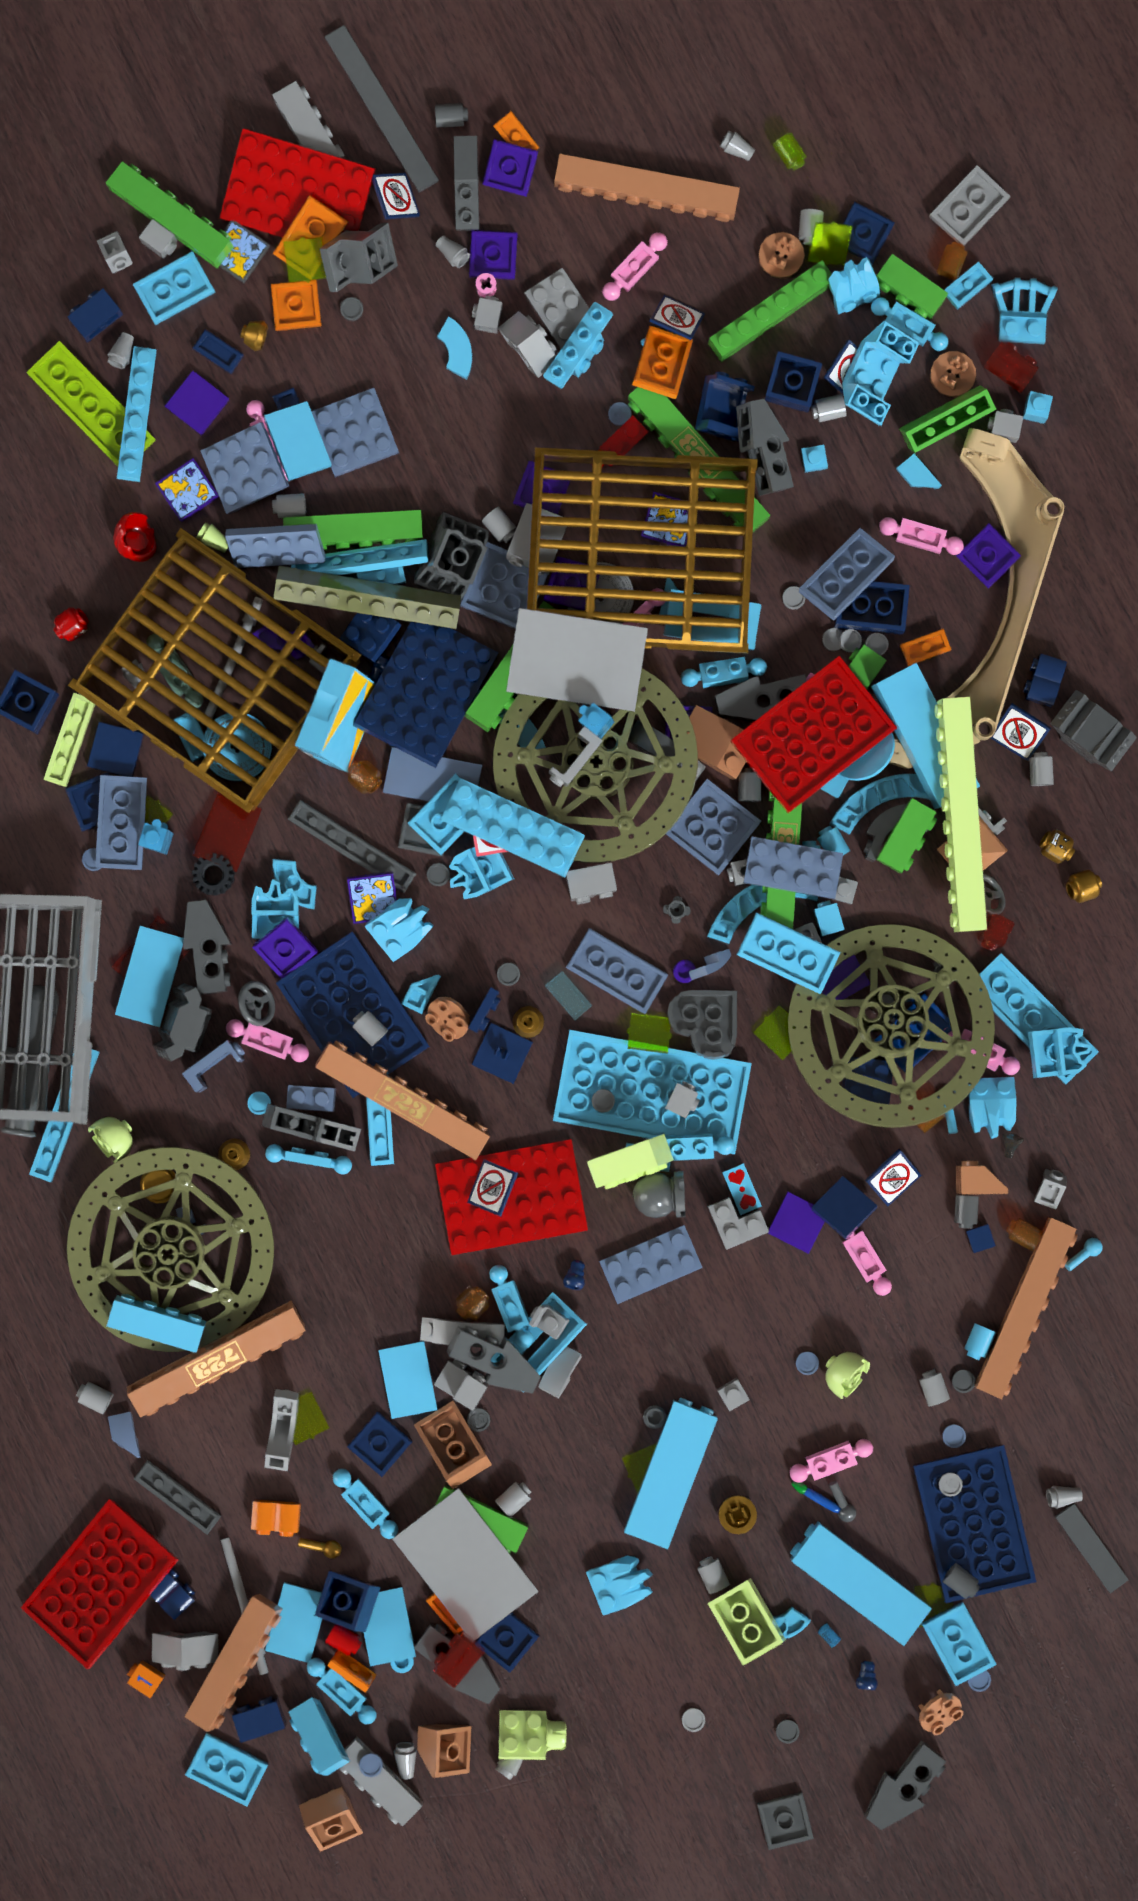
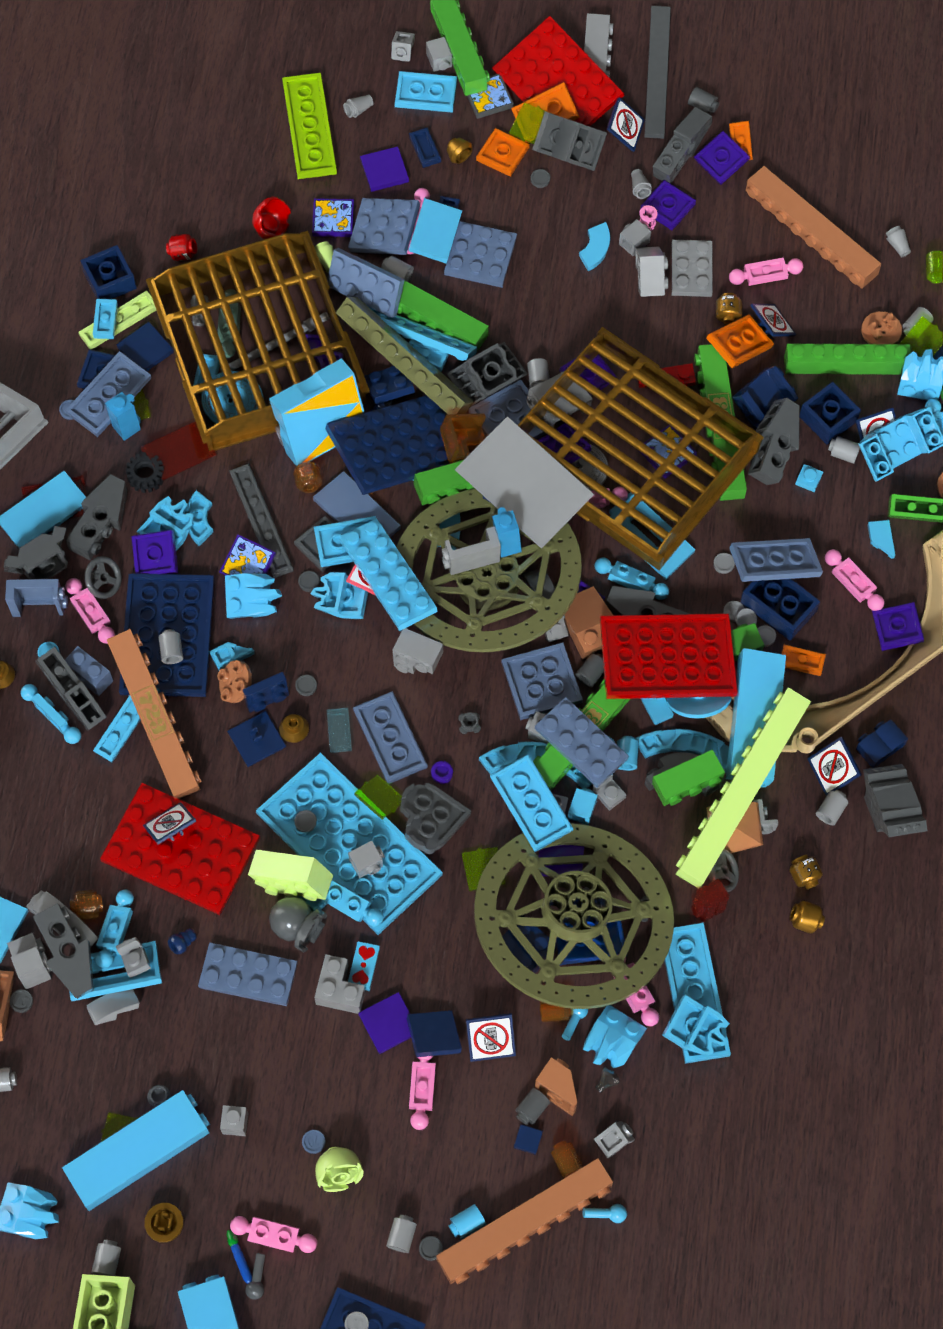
camera: 35 degrees right, 20 degrees down
(60, 751) = (105, 318): none -> medium azure plate
(94, 314) = (357, 73): dark blue brick -> none
(136, 414) = (335, 146): medium azure plate -> none
(472, 641) = (460, 431): none -> clear orange panel
(580, 347) = (686, 296): medium azure bracket -> none
(619, 413) = (683, 357): sand blue piece -> none
(628, 333) = (728, 308): none -> pearl gold head
(713, 963) = (465, 779): sand blue slope -> none
(954, 1436) = (390, 1289): sand blue piece -> none

